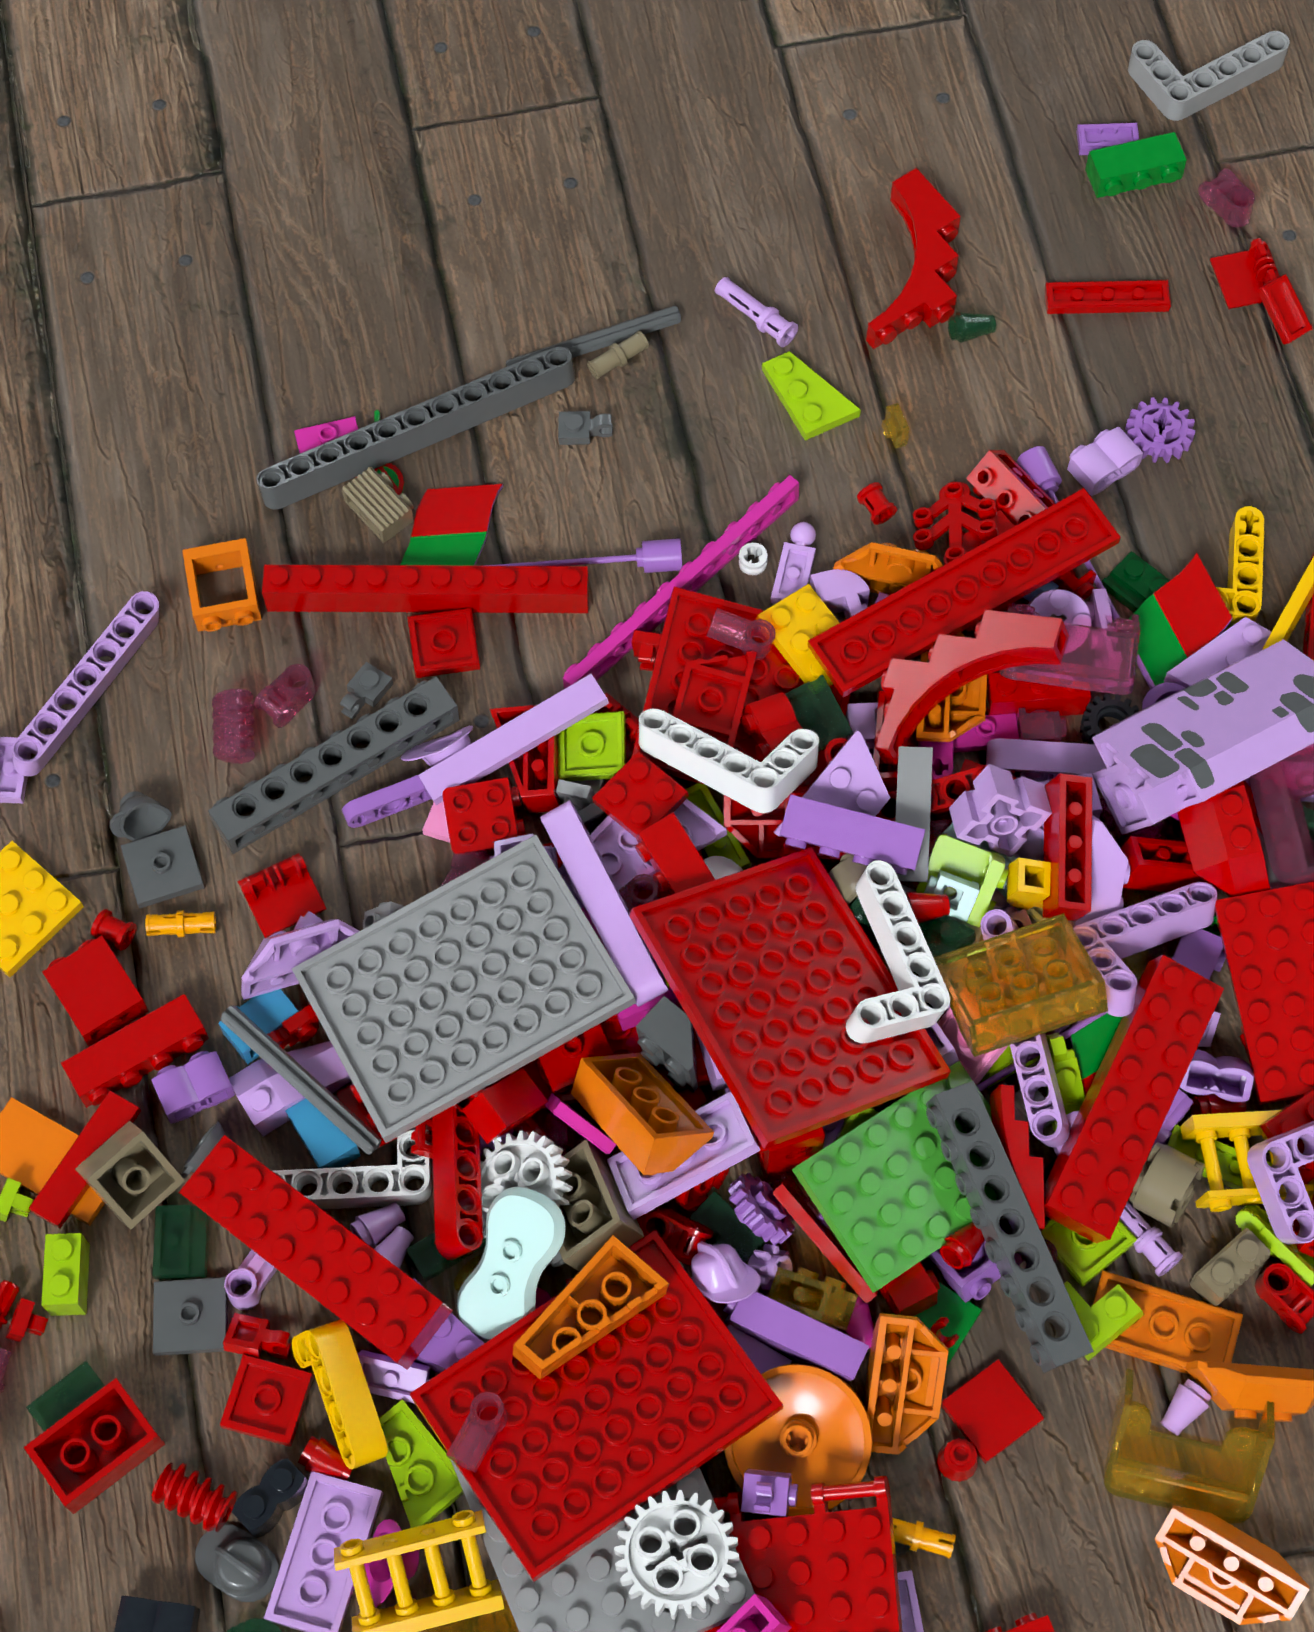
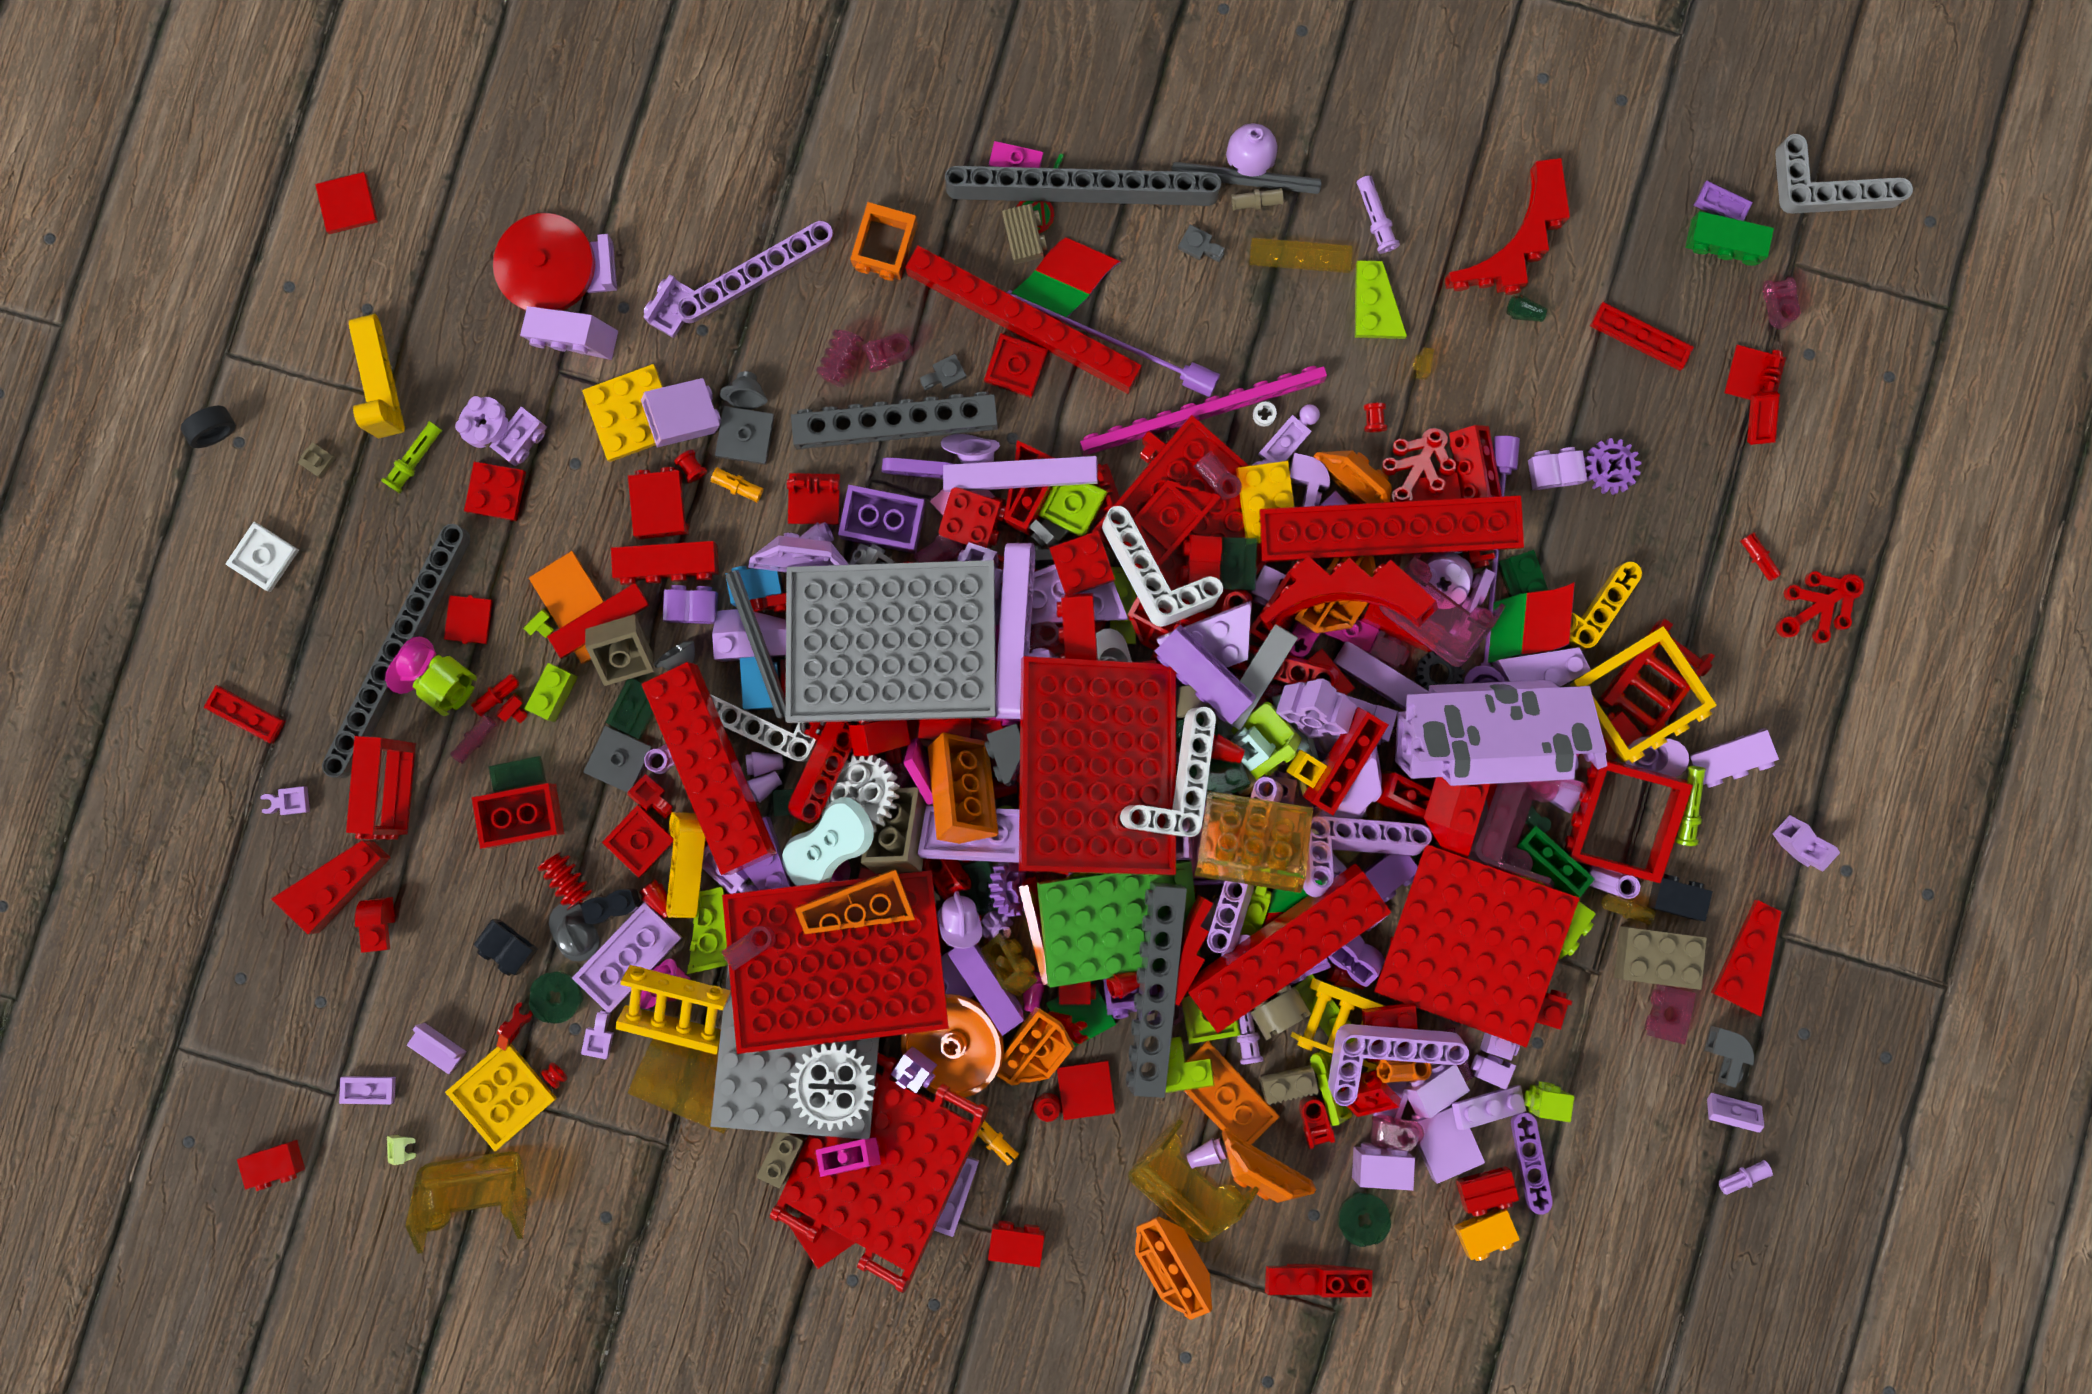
camera: 30 degrees right, 20 degrees up
(72, 872) = (680, 412): none -> lavender brick
(376, 870) = (882, 519): none -> medium lavender brick
(584, 308) = (1252, 149): none -> lavender cylinder
(697, 387) = (1300, 255): none -> clear yellow tile

